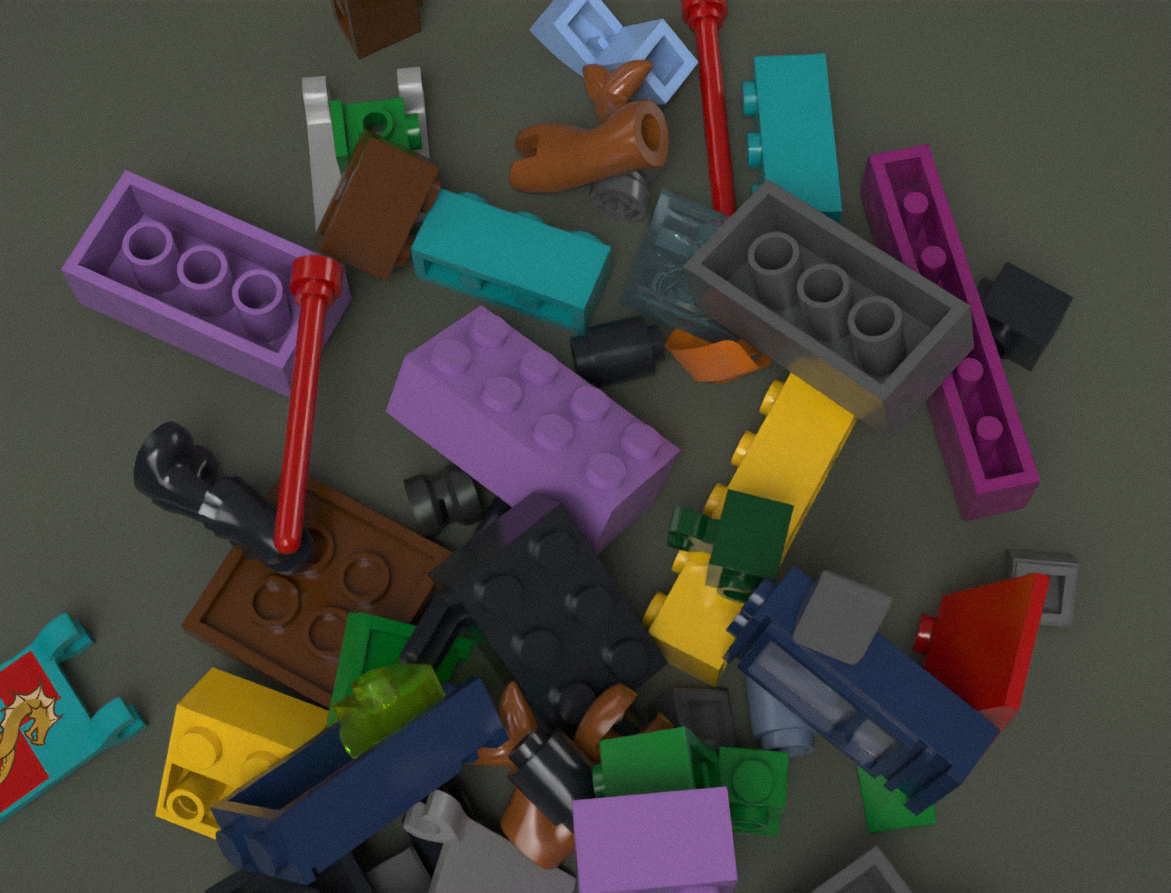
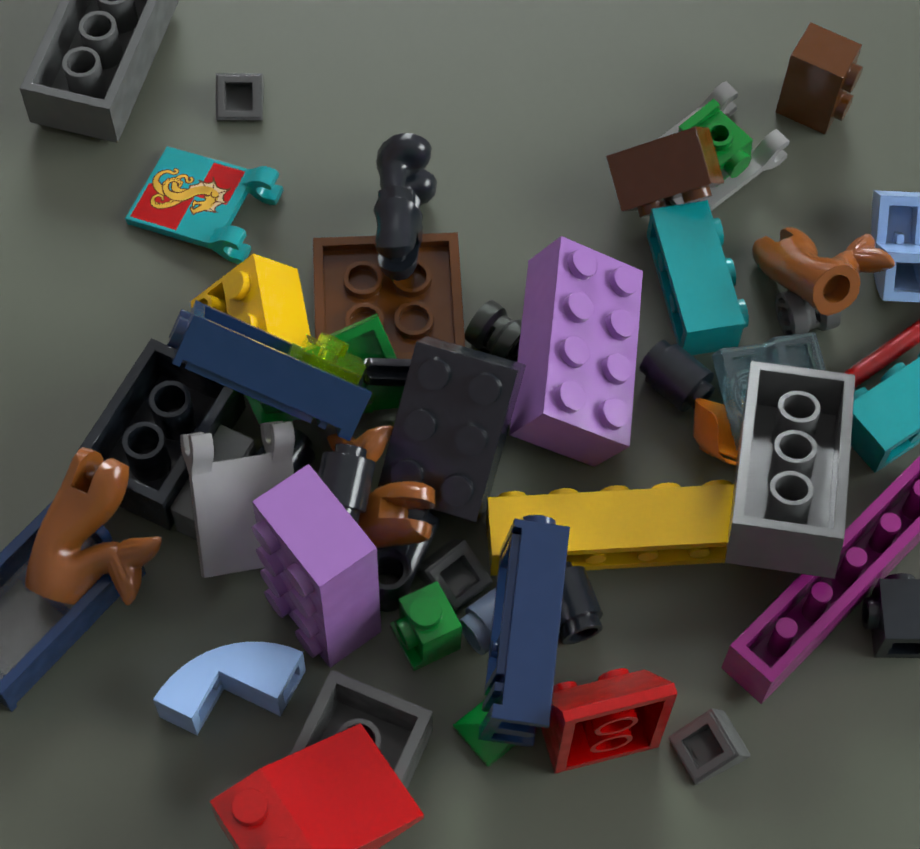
camera: 55 degrees right, 5 degrees down
(195, 280) = (543, 117): medium lavender brick -> none
(316, 285) = (574, 162): red piece -> none
(655, 764) = (392, 532): green slope -> none
(742, 544) = (586, 507): dark green brick -> none
(840, 617) = (547, 568): dark grey slope -> none

